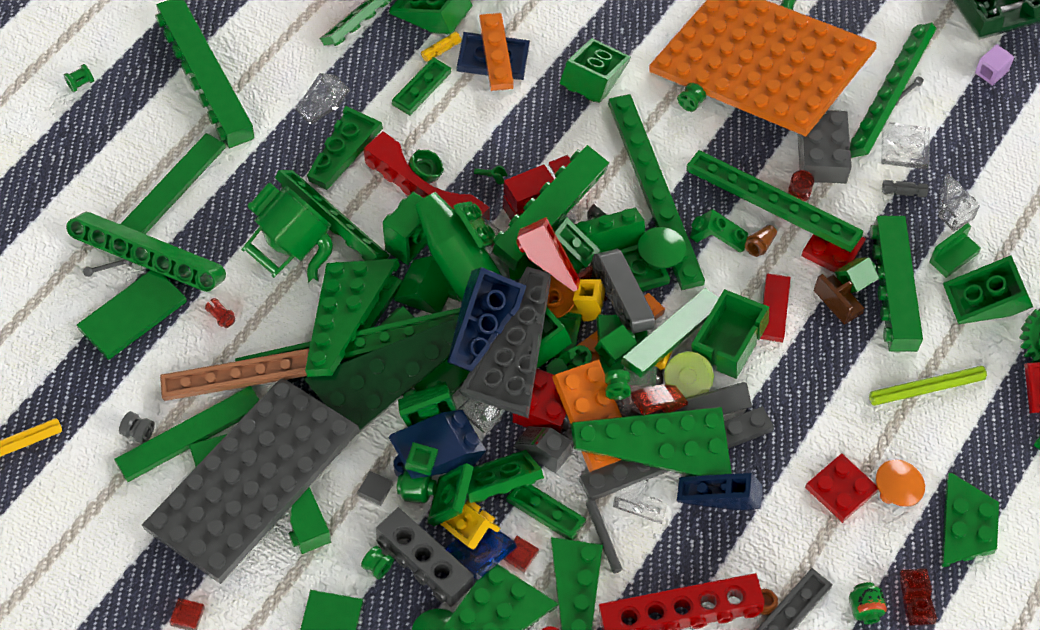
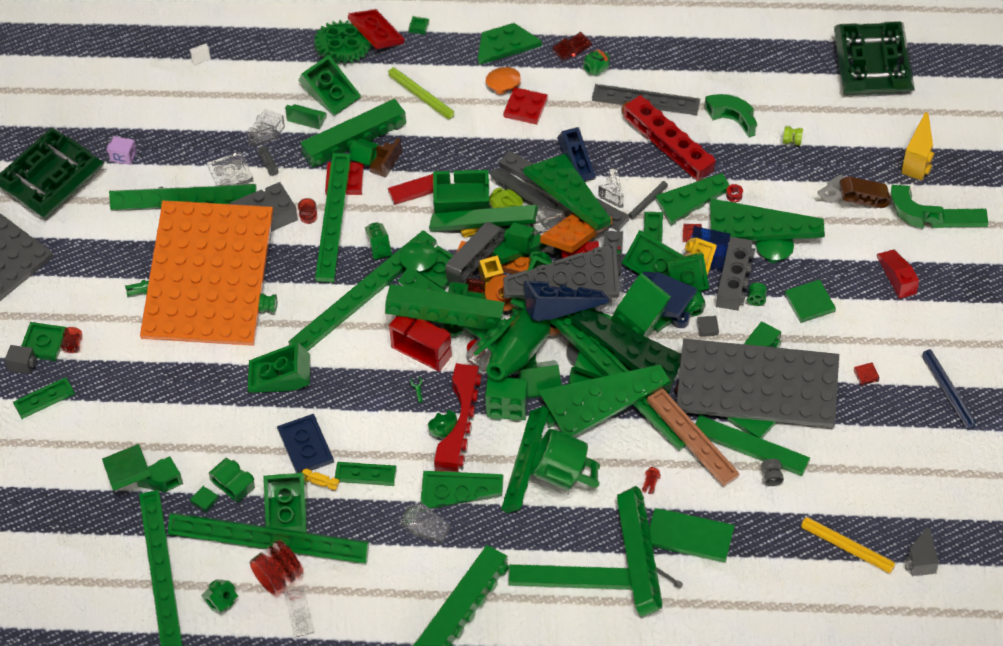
camera: 115 degrees left, 5 degrees down
(421, 459) = (682, 287): green tile -> none
(496, 51) = (304, 437): orange plate -> none
(546, 251) = (489, 283): slope -> none
(617, 384) = (553, 215): green wheel -> none
(658, 397) = (544, 197): clear red slope -> none
(760, 240) = (368, 214): dark orange cone -> none

